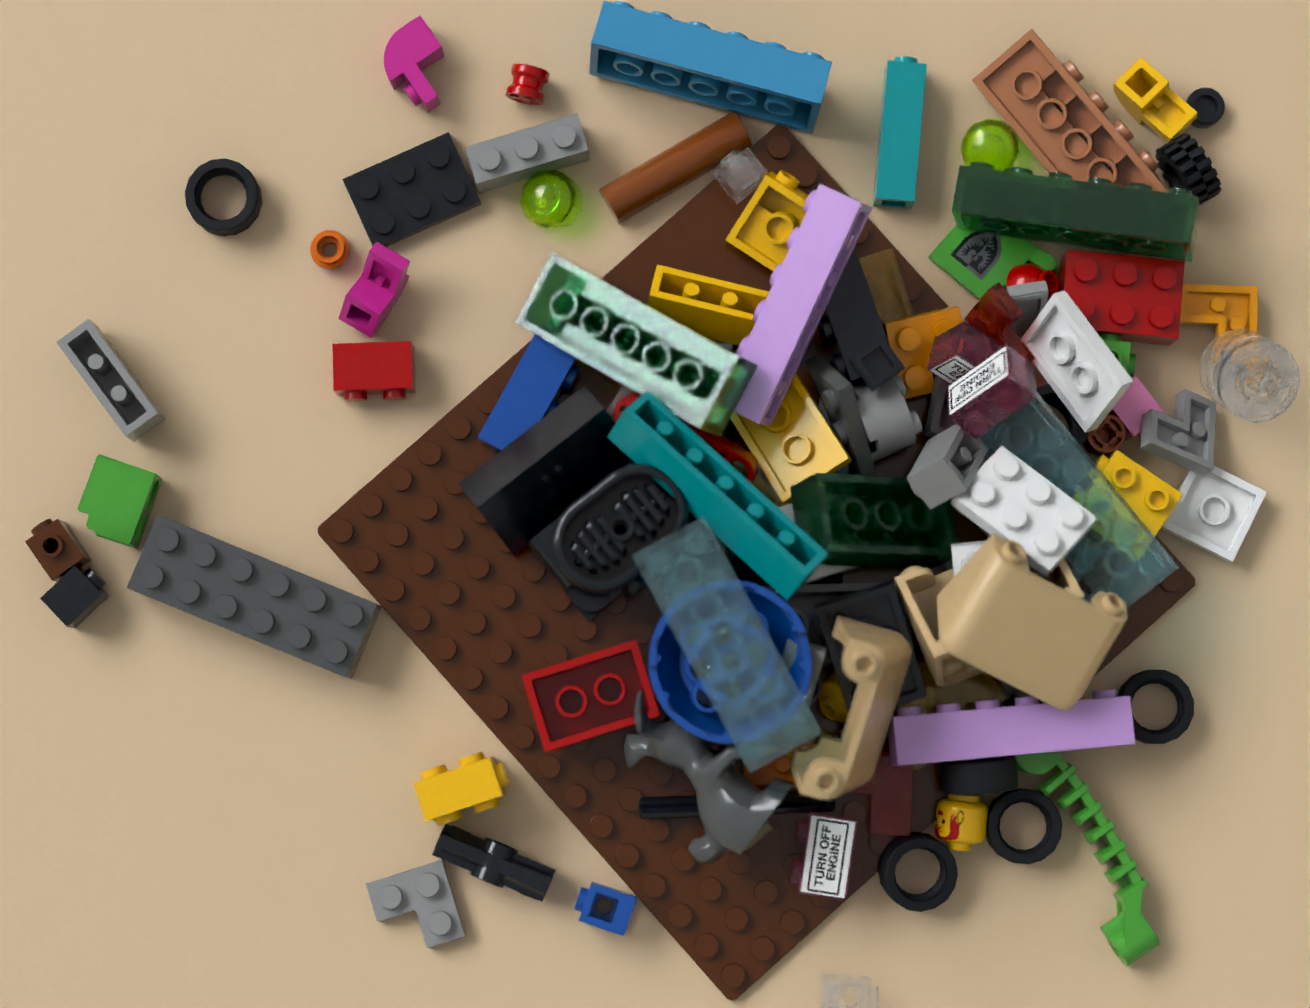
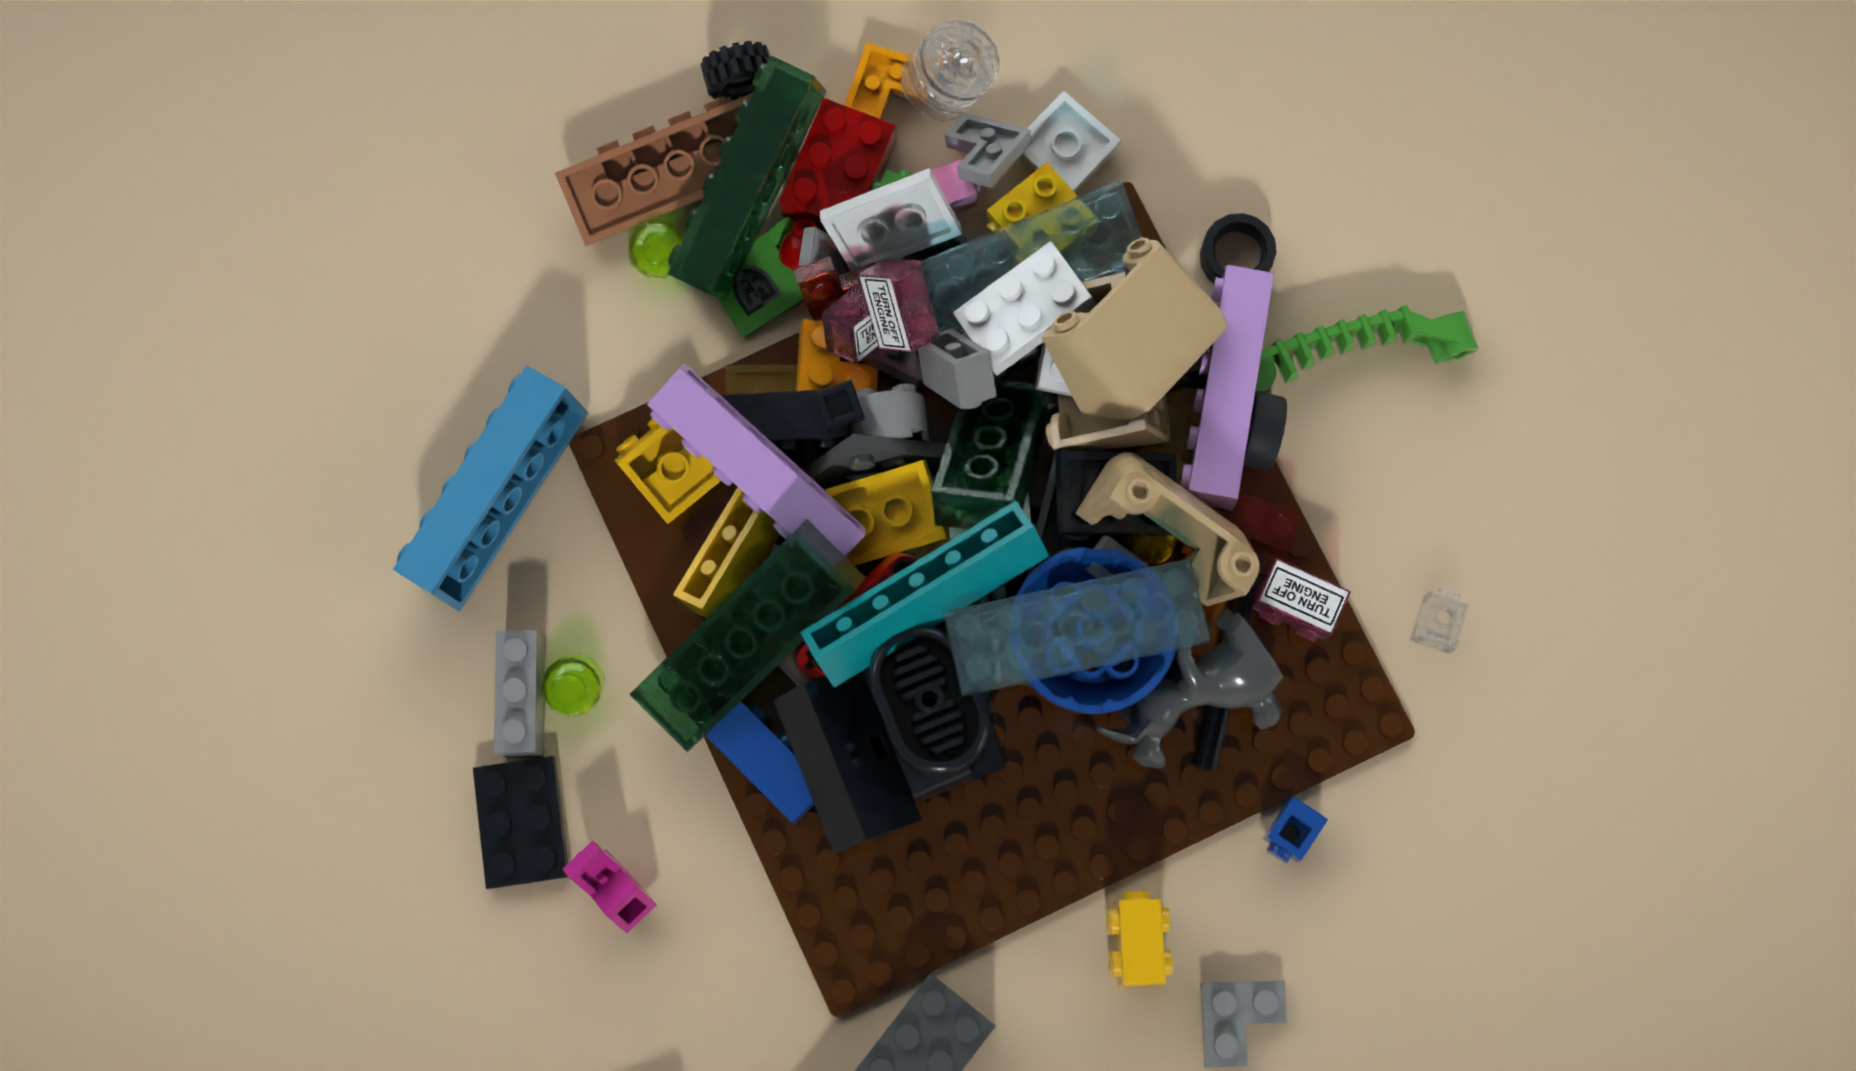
camera: 70 degrees left, 5 degrees down
(217, 168) = (434, 1011): black tyre -> none
(323, 239) = (541, 918): orange plate -> none
(373, 369) = (690, 911): red brick -> none
(407, 55) = (382, 787): dark pink brick -> none
(494, 862) = (1219, 930): black piece -> none
(527, 84) = (450, 674): red wheel -> none
(588, 695) = (1082, 784): red brick -> none
(675, 167) = (579, 553): dark orange brick -> none
(740, 174) = (607, 490): clear brick -> none
(899, 133) = (615, 328): teal brick -> none
(934, 896) = (1356, 498): black tyre -> none
(961, 821) = (1301, 463): yellow head -> none
(1051, 816) = (1346, 393): black tyre -> none
(1101, 441) = (972, 211): copper wheel -> none
(1151, 101) = (657, 87): yellow brick -> none
(1208, 105) = (680, 43): black tile -> none

